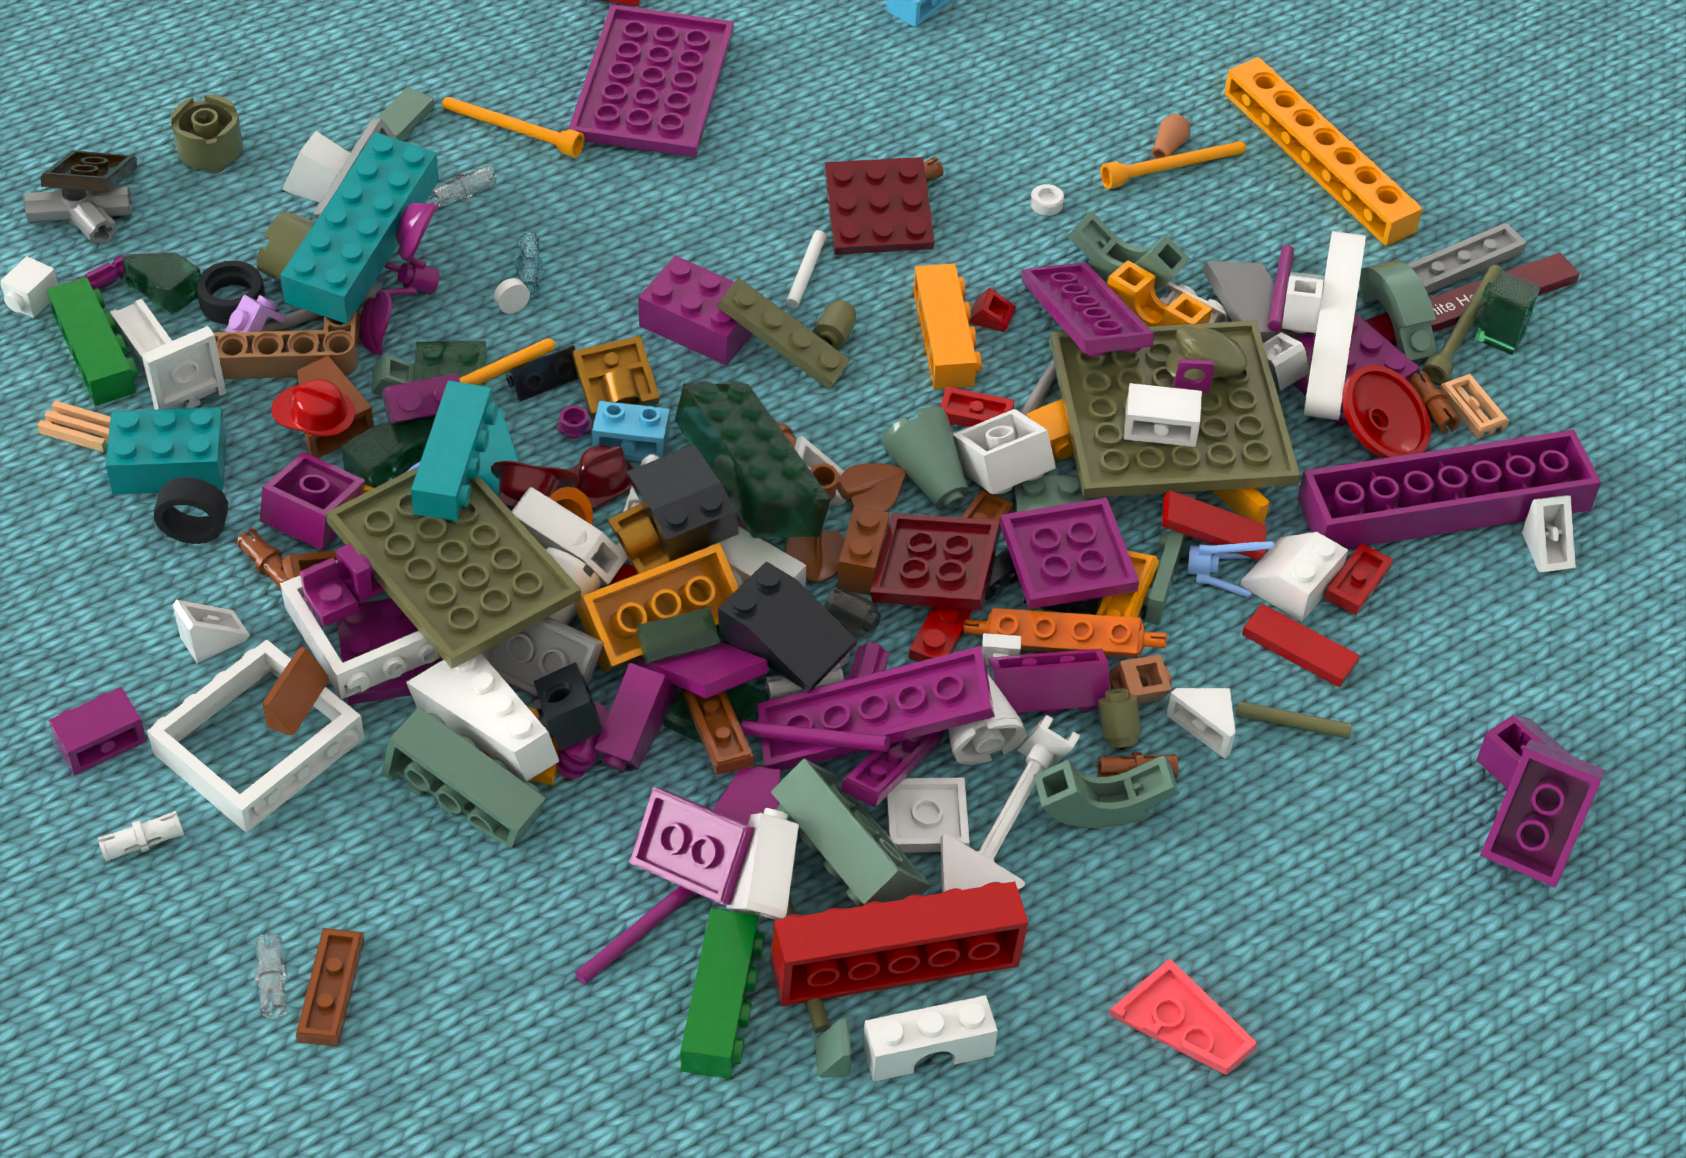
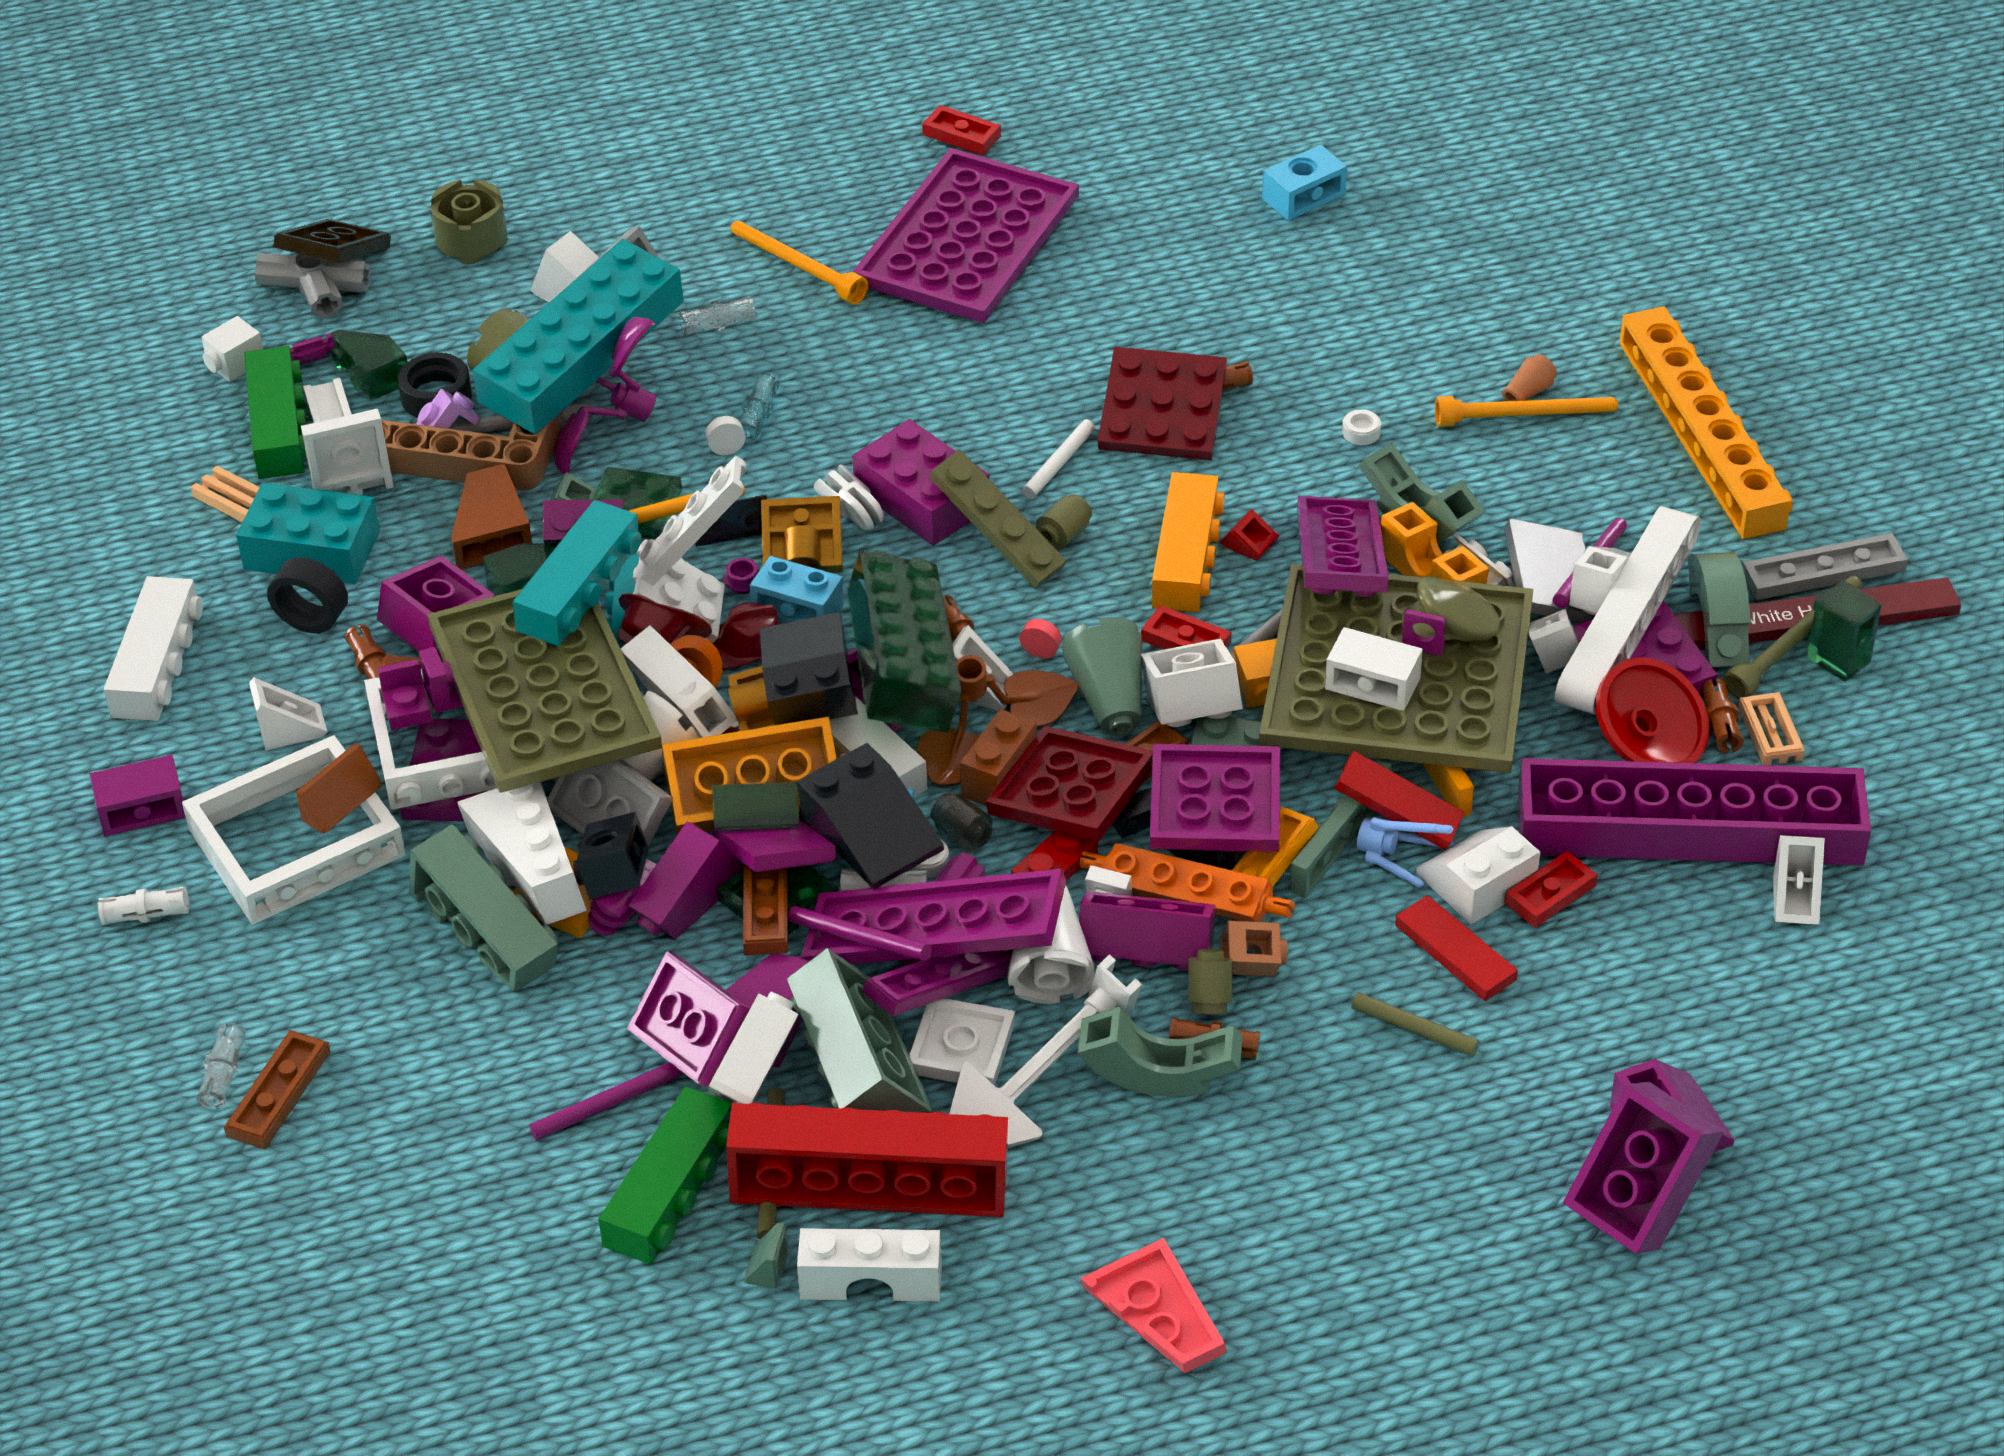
camera: 20 degrees right, 5 degrees down
(60, 587) = (153, 648): none -> white brick
(314, 408) = (469, 514): red piece -> none
(406, 112) = (685, 232): sand green tile -> none
(516, 430) = (662, 571): none -> white bracket
(656, 340) = (854, 497): none -> white arm
(855, 434) = (1040, 638): none -> coral tile
(1206, 715) = (1312, 998): white slope -> none

